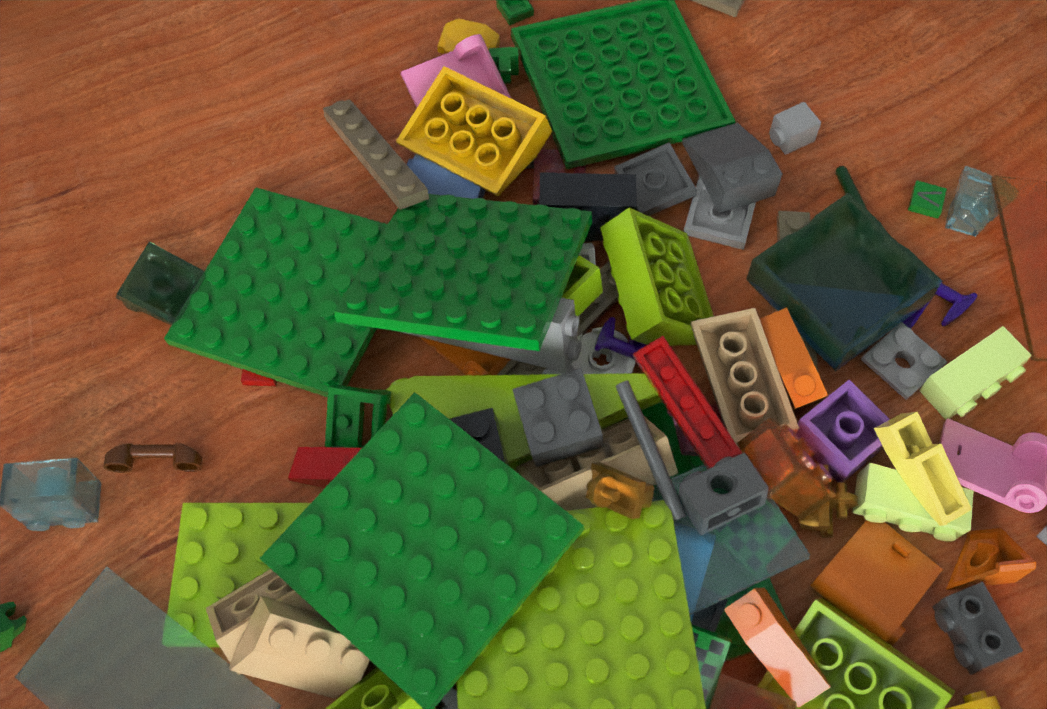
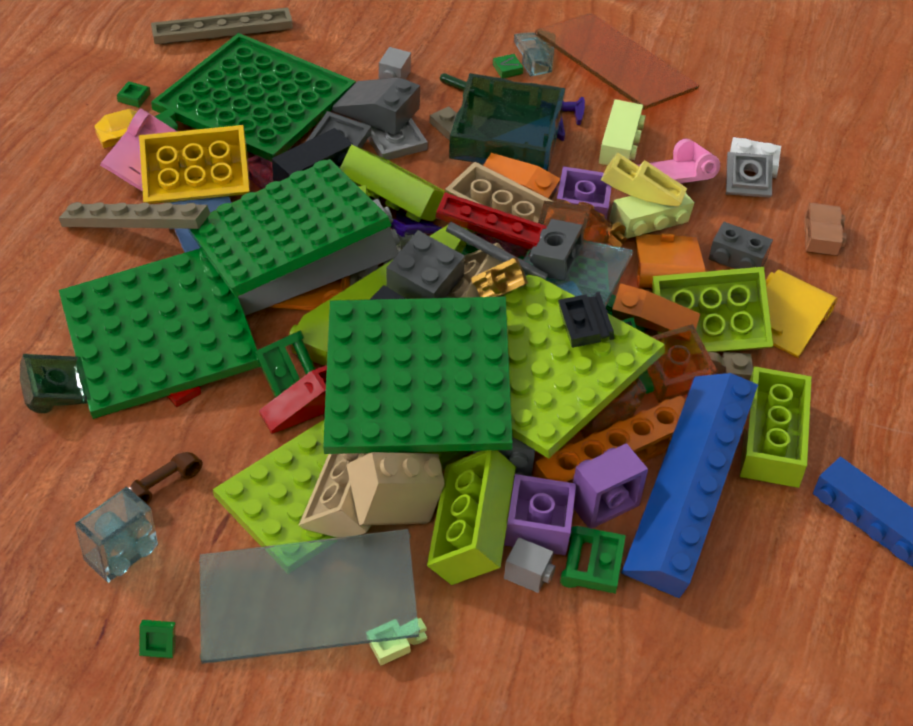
camera: 45 degrees left, 15 degrees down
(646, 620) = (585, 319): none -> black plate
(907, 345) = (577, 150): light grey piece -> none
(990, 558) = (713, 212): orange slope -> none

